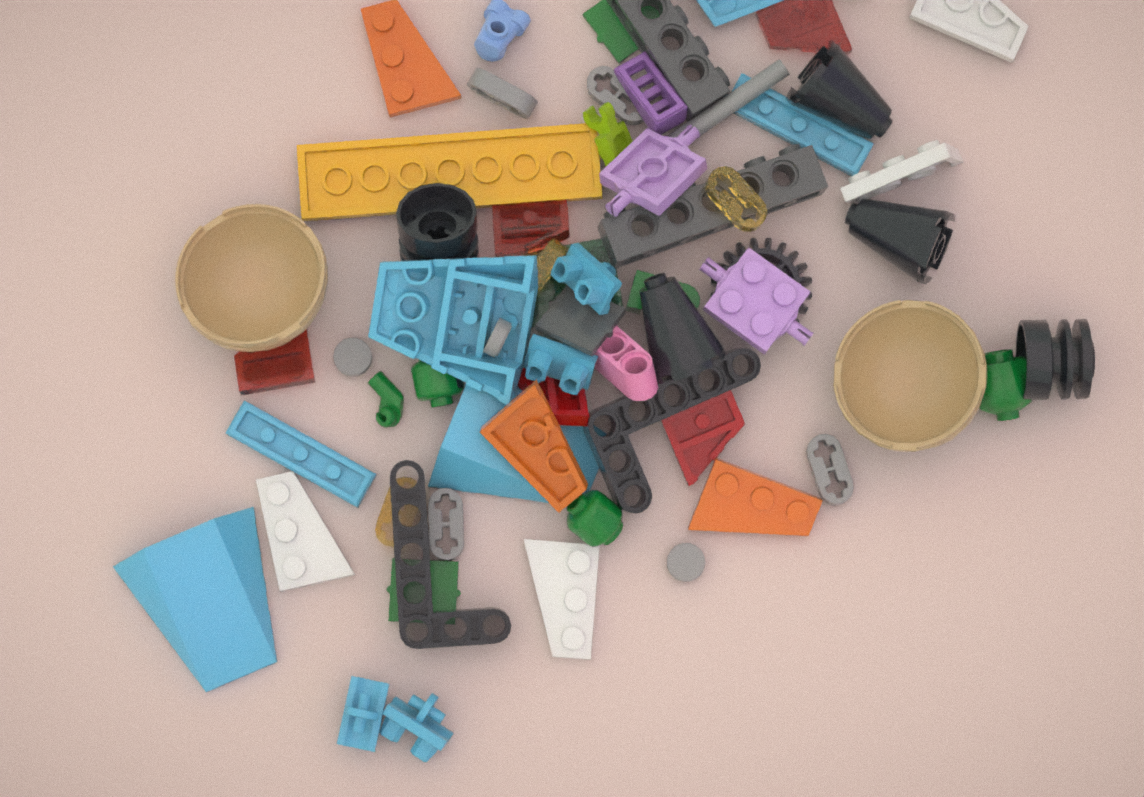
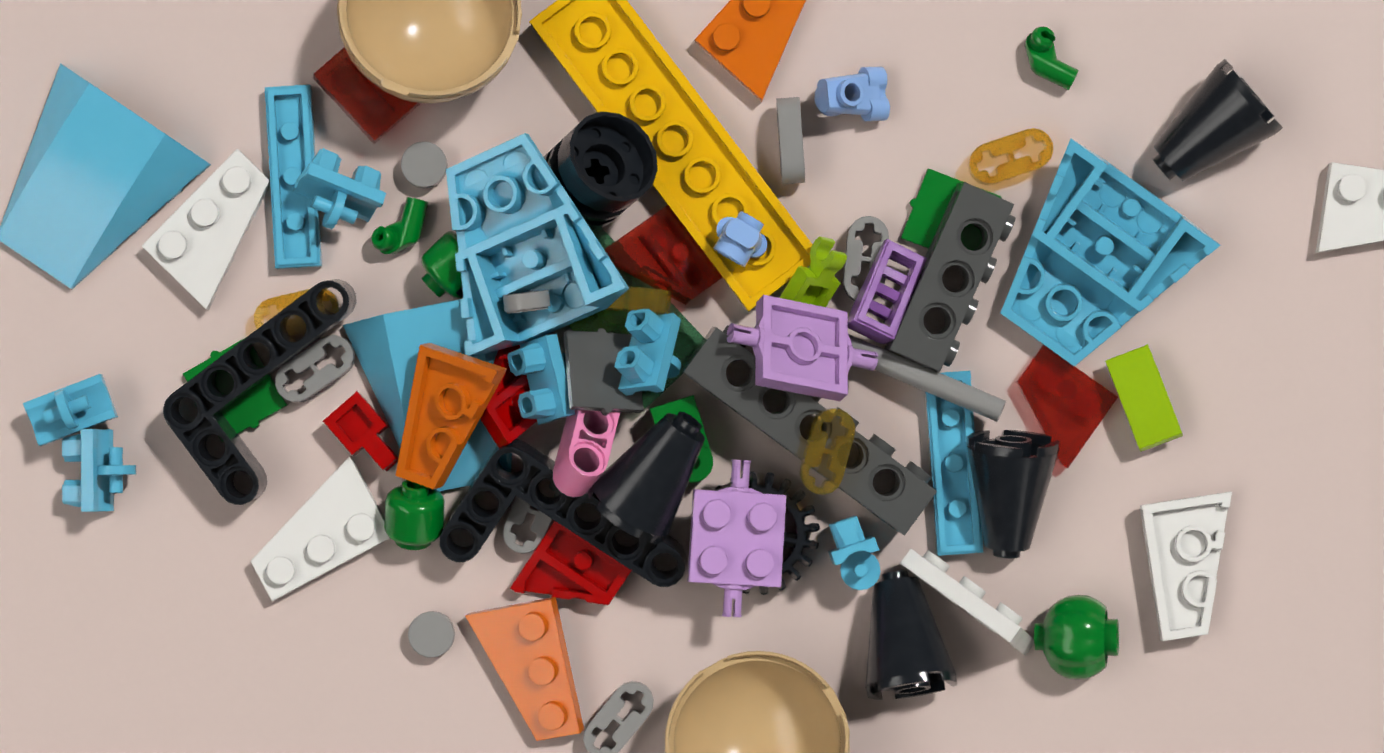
camera: 60 degrees right, 5 degrees up
(334, 427) = (338, 194): none -> medium azure hips
(507, 519) = (359, 428): none -> red plate
(548, 166) = (740, 238): none -> light blue plate
(656, 435) = (517, 516): none -> light grey beam
(817, 229) = (853, 551): none -> medium azure hips
(974, 115) = (1077, 637): none -> green plant

